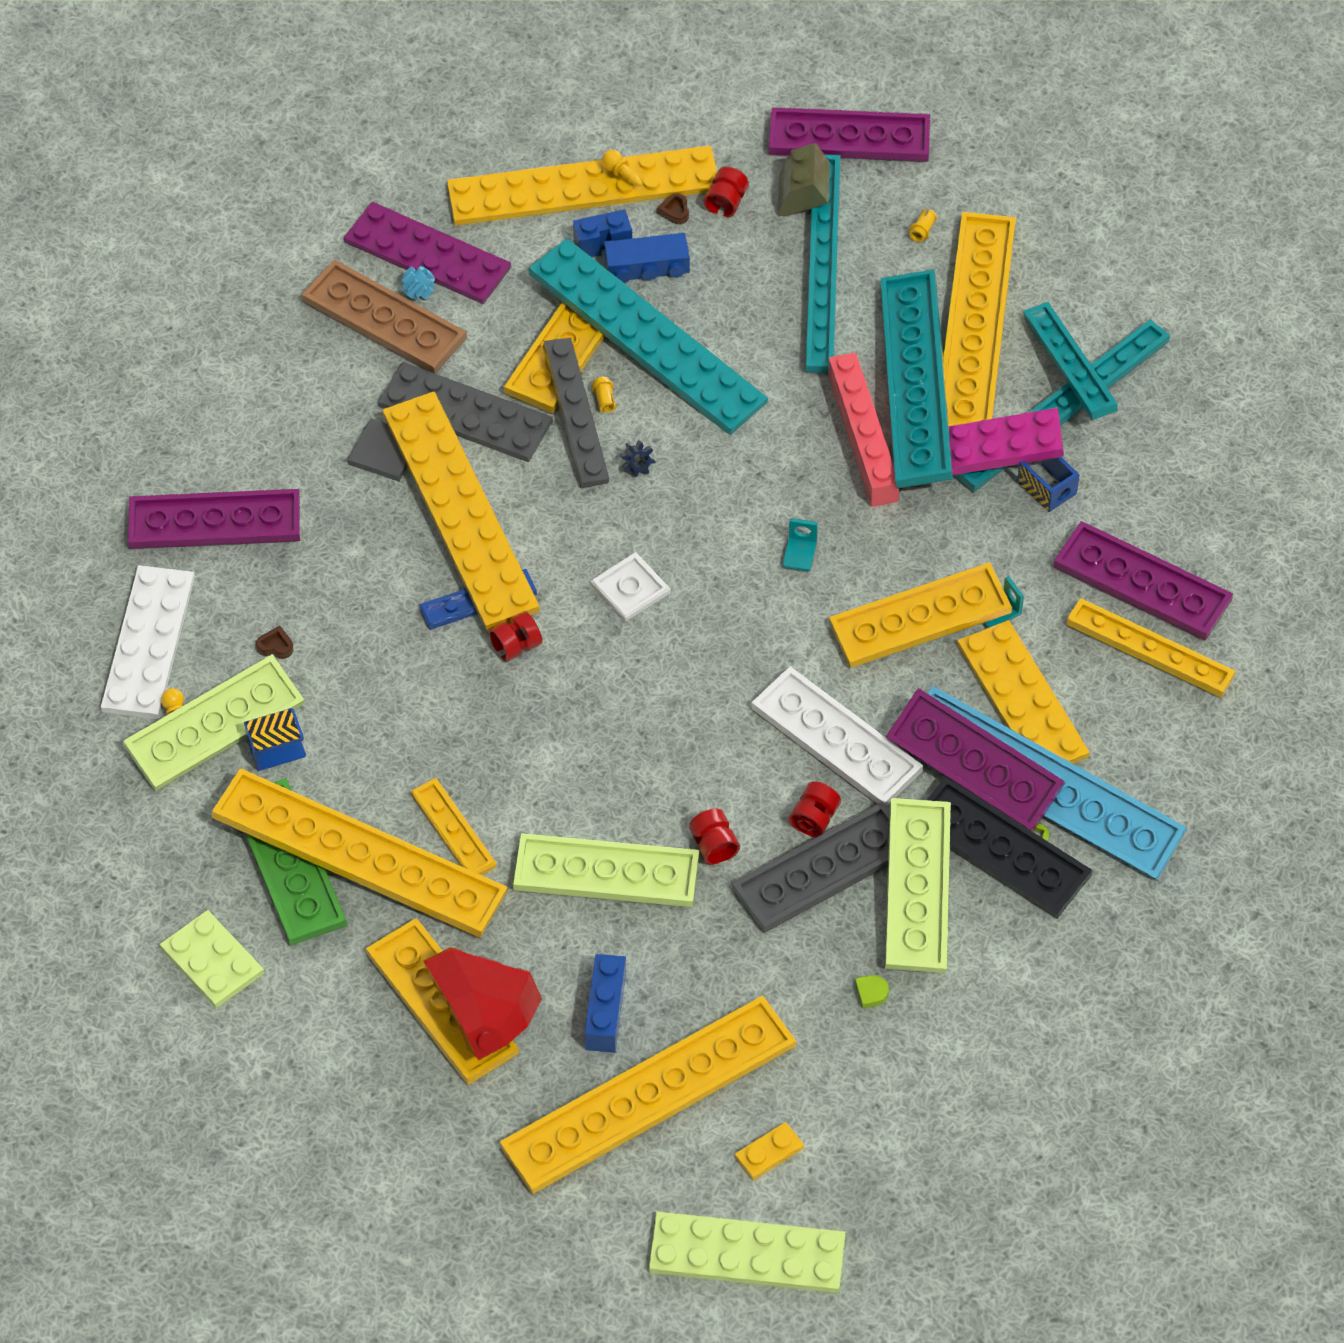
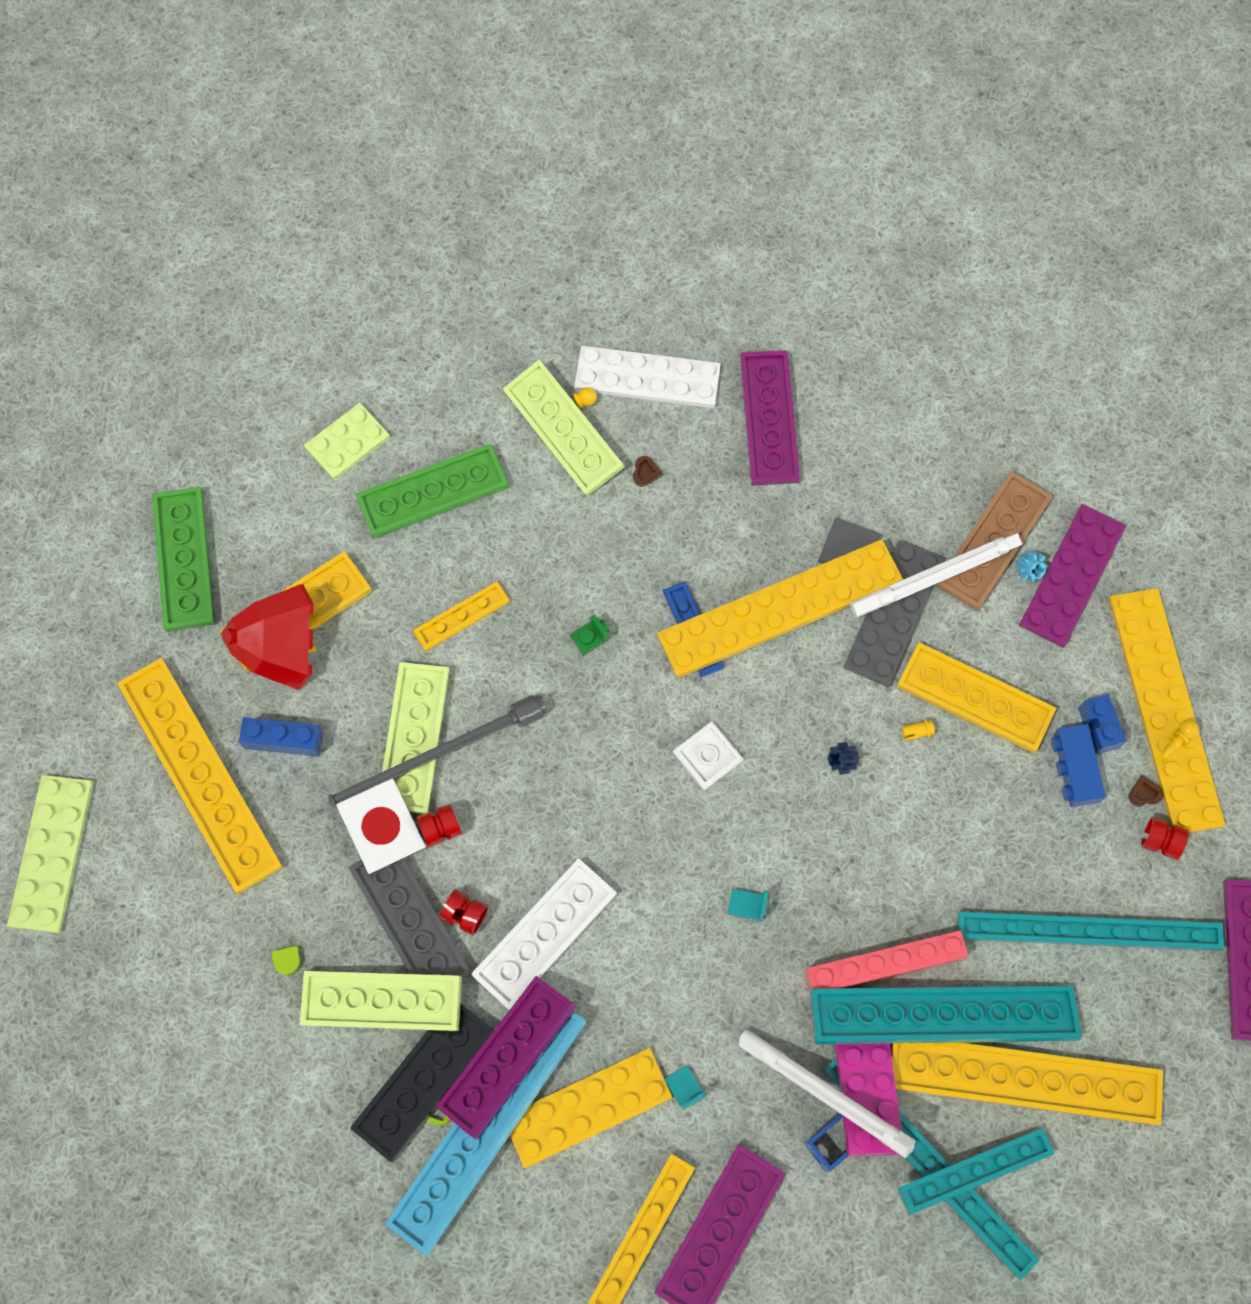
camera: 90 degrees right, 15 degrees up
(275, 739) = (543, 472): piece -> none
(360, 852) = (429, 542): yellow plate -> none
(364, 1131) = (183, 559): none -> bright green plate
(428, 365) = (934, 575): none -> white piece
(483, 695) = (590, 635): none -> green bracket
(507, 636) = (645, 655): red wheel -> none
(576, 412) = (892, 703): dark grey plate -> none
(648, 336) = (983, 767): teal plate -> none
(692, 896) = (377, 811): none -> flag
(769, 1151) = (140, 871): yellow plate -> none
(803, 180) = (1182, 913): olive slope -> none
(920, 615) = (674, 1014): yellow plate -> none
(922, 226) = (1139, 1028): yellow pin -> none
(1001, 471) = (834, 1098): none -> white piece

